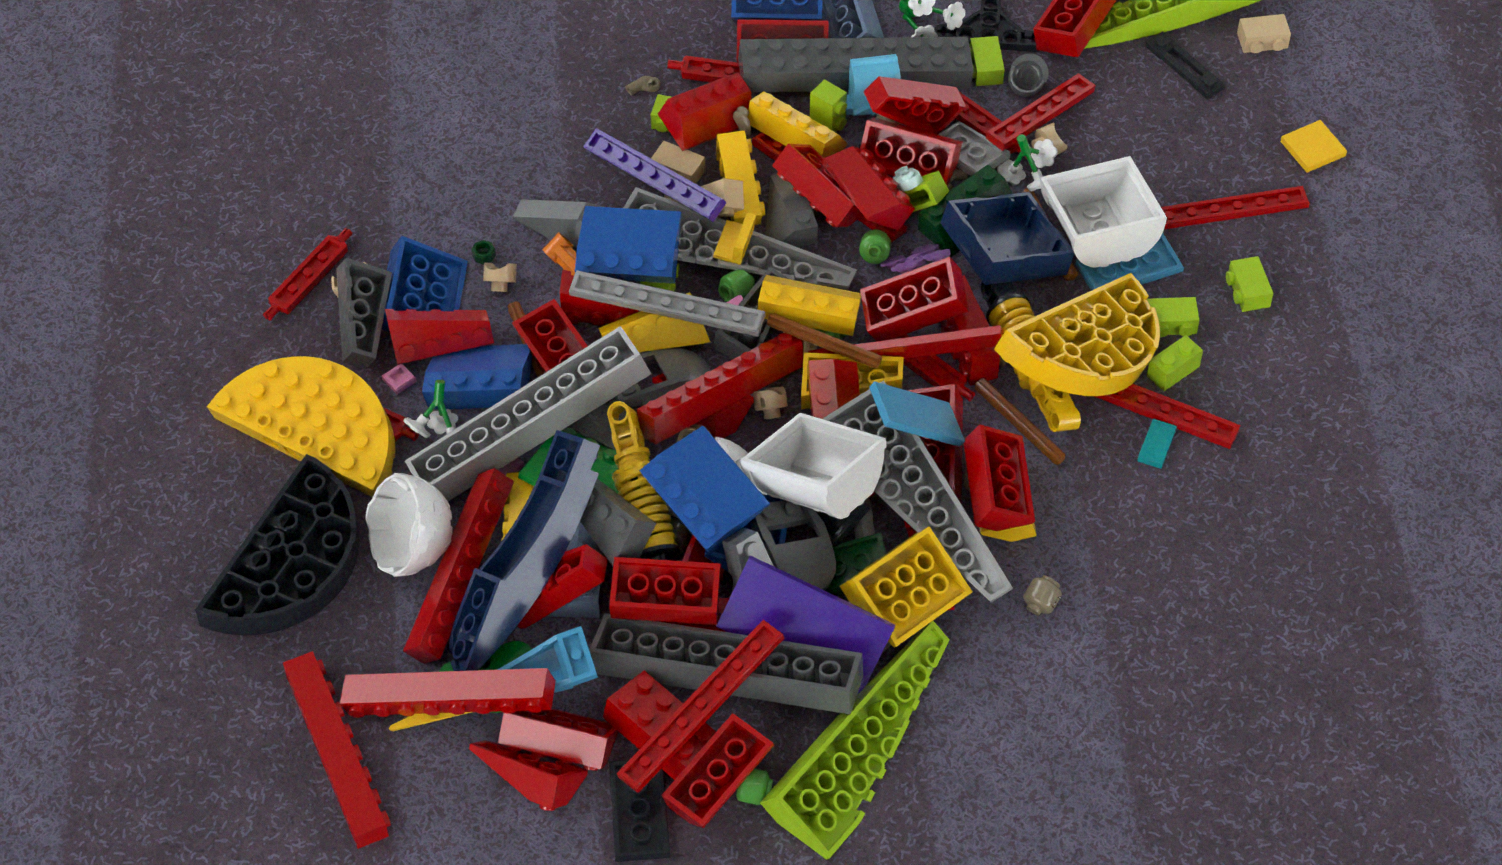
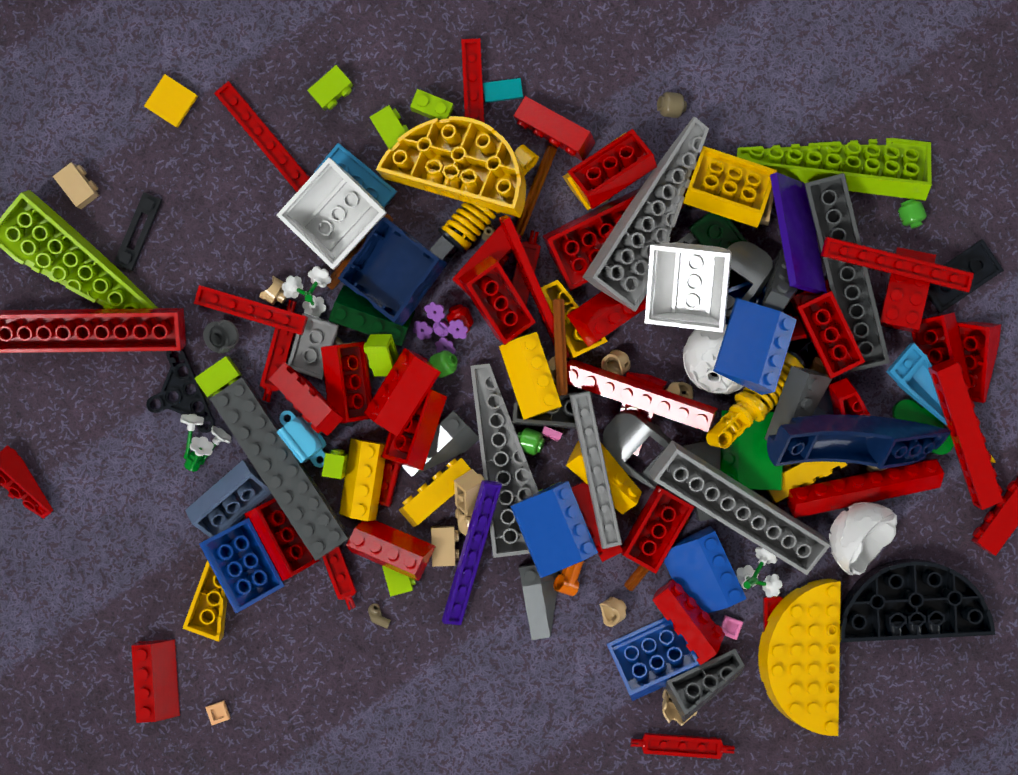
camera: 120 degrees left, 35 degrees up
(483, 252) = (594, 636): dark green tile -> none
(716, 771) = (925, 232): red slope -> none
(735, 240) = (501, 460): yellow panel -> none
(742, 121) = (380, 522): dark tan arm -> none
(907, 178) = (378, 367): light aqua plate -> none
(916, 414) = (604, 242): dark azure tile -> none
(1079, 464) = (554, 128): none -> red wedge

